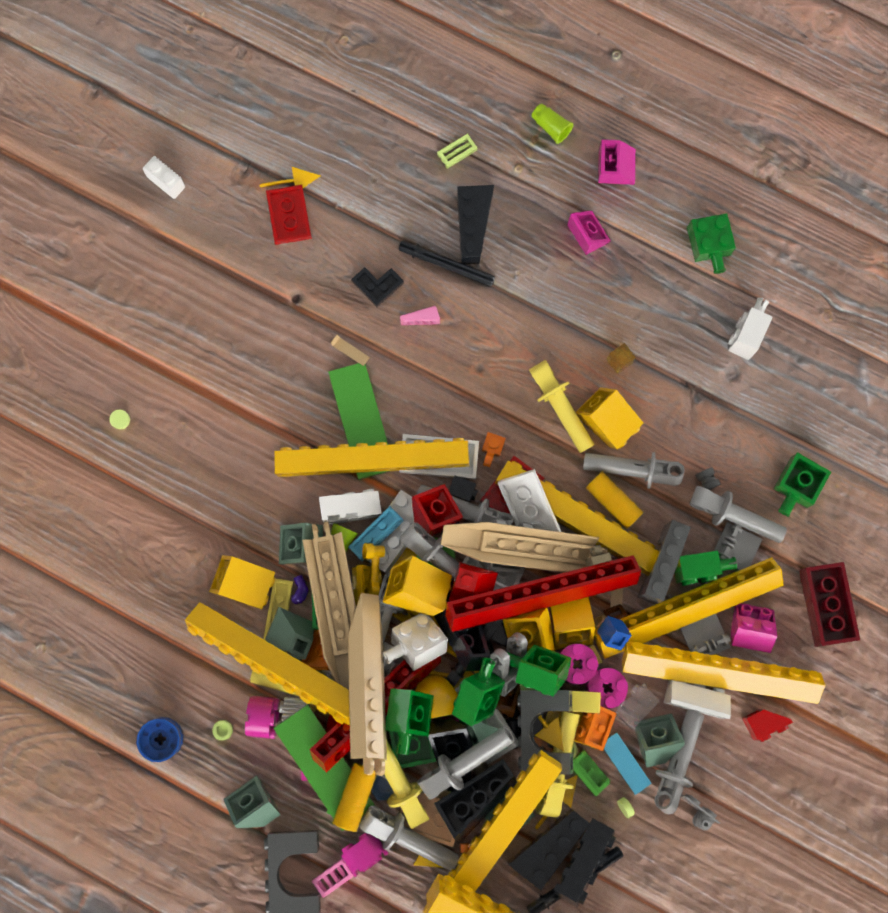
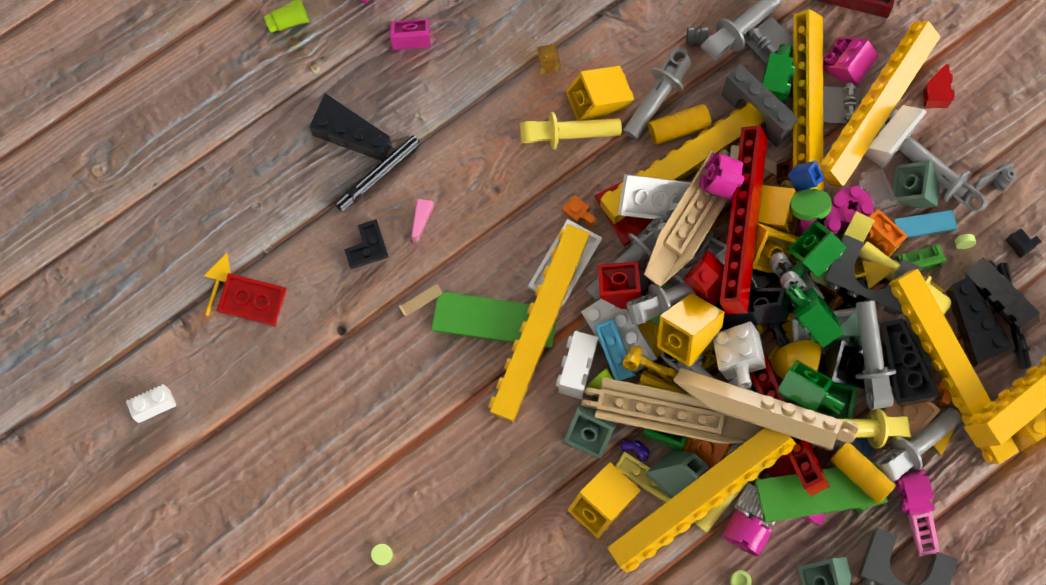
camera: 60 degrees left, 5 degrees down
(444, 159) = (270, 129): yellowish green tile -> none
(463, 489) = (607, 252): black brick -> none
(573, 556) = (722, 176): none -> dark pink brick
(586, 648) = (811, 204): none -> bright green tile
(650, 862) = (1022, 243): none -> black panel

